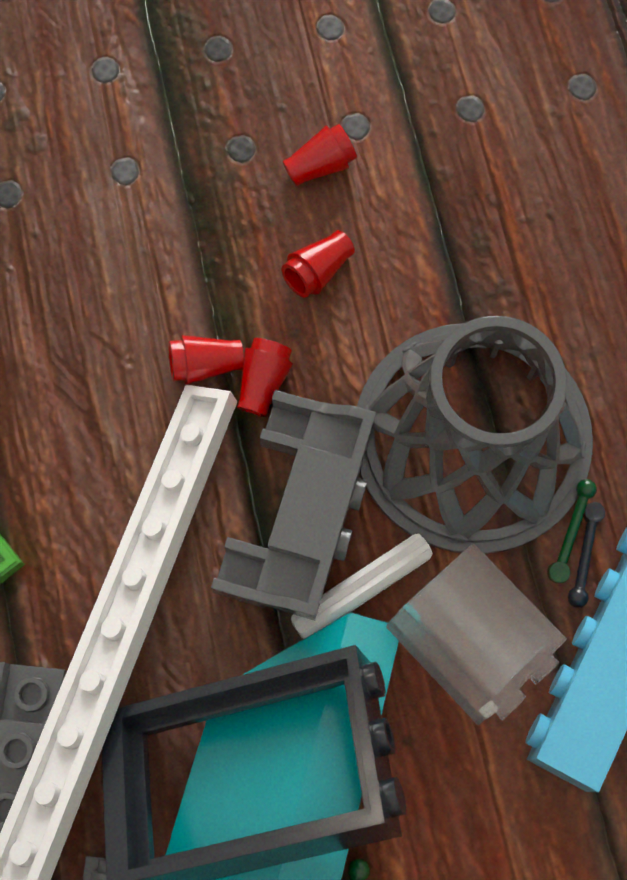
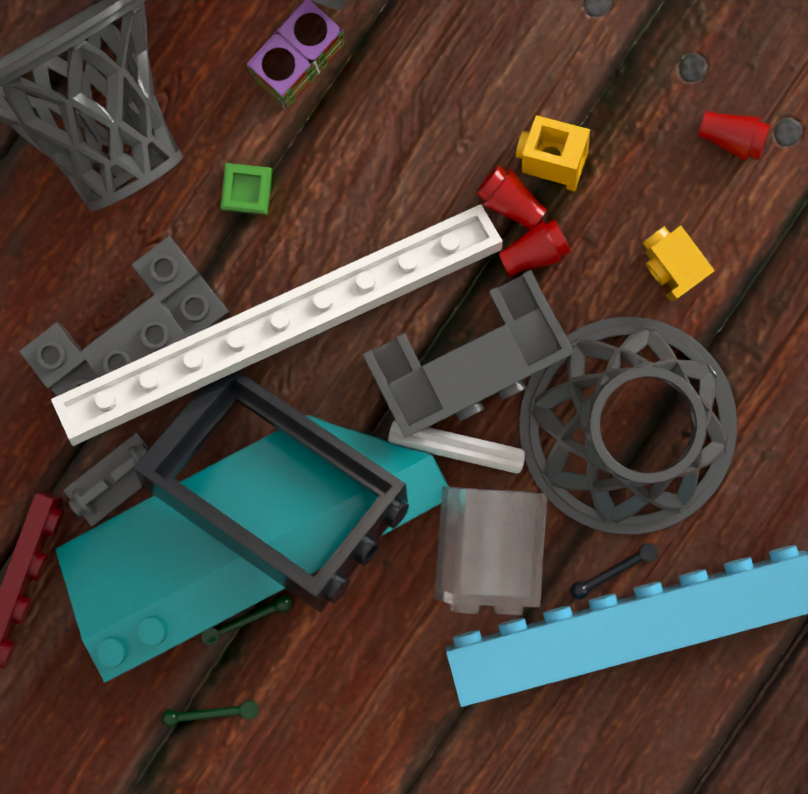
camera: 50 degrees right, 15 degrees up
(200, 292) = (554, 151): none -> yellow brick
(316, 264) = (649, 208): red cone -> none
(376, 279) = (675, 261): none -> yellow brick
(559, 571) = (586, 563): dark green hinge -> none

